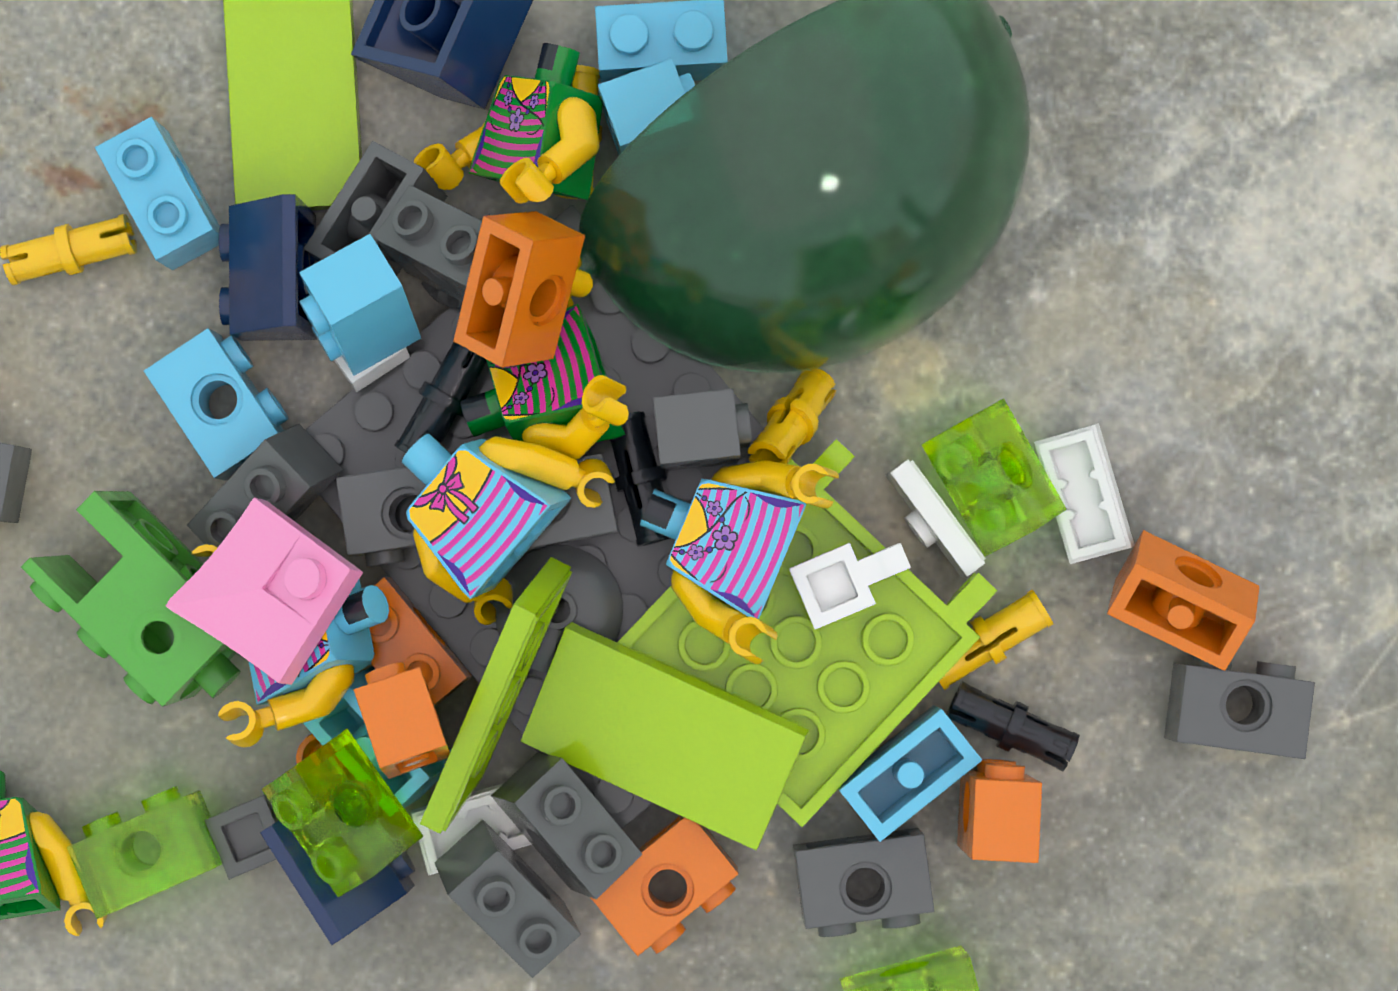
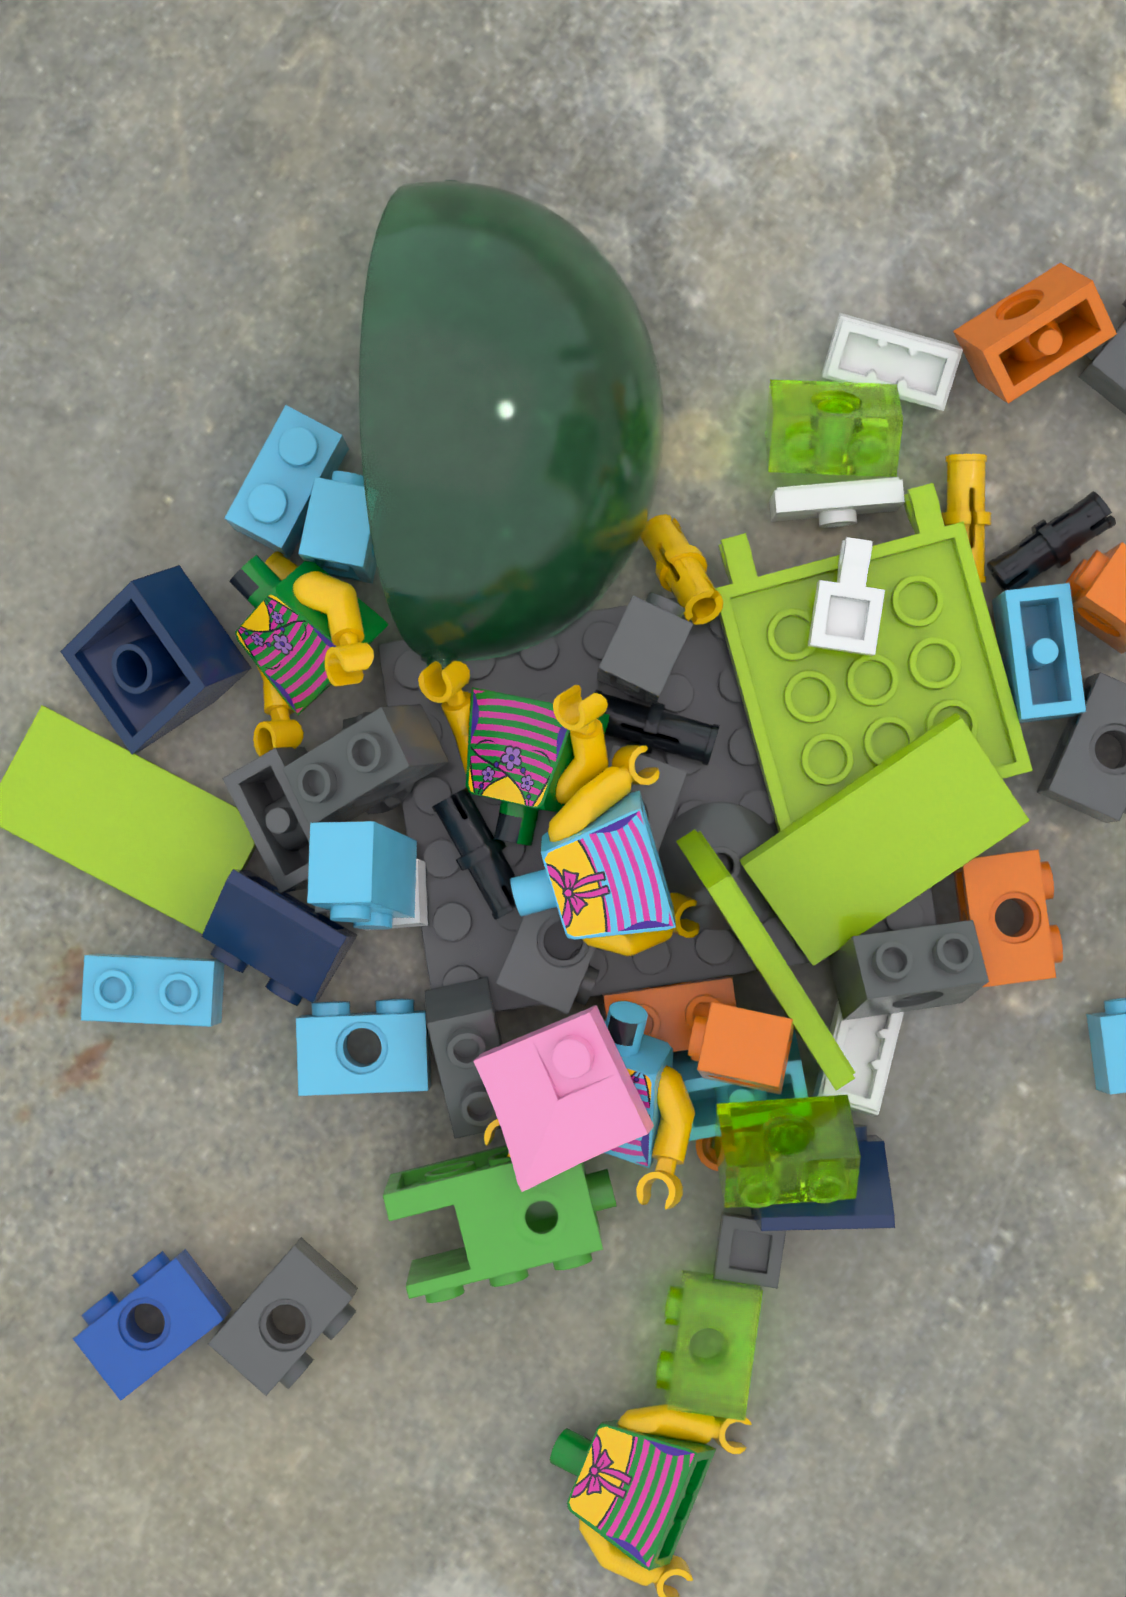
camera: 55 degrees left, 0 degrees up
(68, 249) = (149, 1100): yellow pin -> none
(507, 898) = (940, 1059): dark grey brick -> none
(518, 288) = (434, 725): orange brick -> none
(734, 542) = (760, 677): torso -> none

